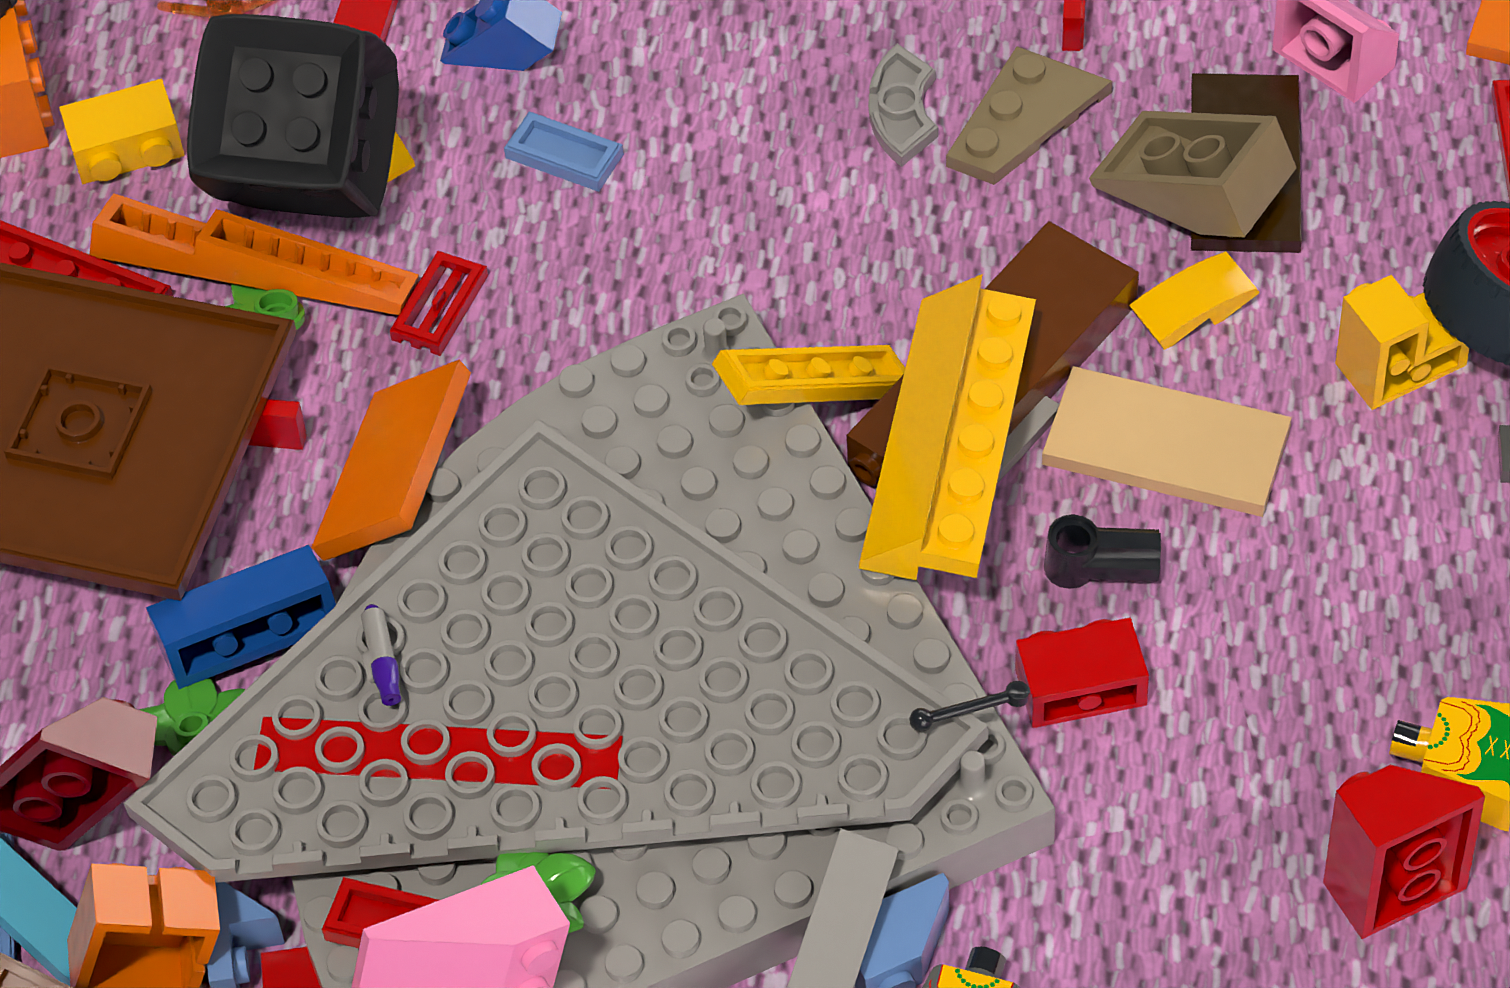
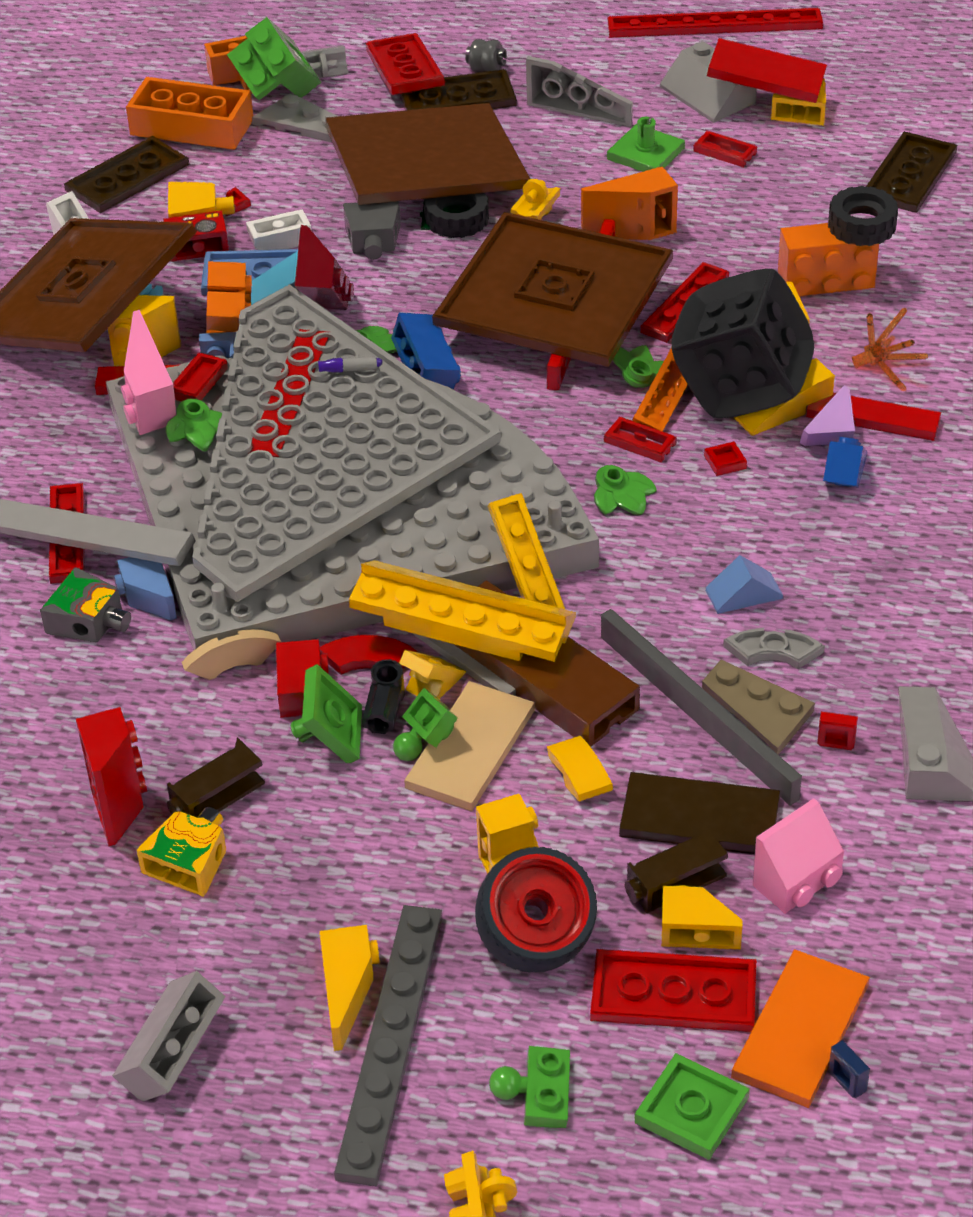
camera: 95 degrees right, 10 degrees down
(391, 461) = (508, 399): orange tile -> none
(418, 43) = (831, 422): none -> lavender slope
(481, 190) = (725, 458): none -> red tile
(563, 151) = (752, 494): medium blue tile -> none
(574, 310) = (625, 491): none -> bright green plate
(789, 145) = (742, 586): none -> medium blue slope
(993, 606) = (362, 652): none -> red tile
(1016, 695) = (253, 604): black hinge -> none
(1040, 493) = (430, 673): none -> yellow slope
(1044, 173) = (701, 707): none -> dark grey tile
(1071, 806) = (216, 656): none -> tan tile
(1154, 477) = (430, 722): none -> bright green plate
(1177, 609) = (329, 715): none -> bright green tile
(1199, 169) = (673, 767): dark tan slope -> none
(1321, 734) = (217, 782): none -> dark brown window
(1369, 166) = (688, 864): none -> dark brown window
(1449, 143) = (698, 920): none -> yellow slope

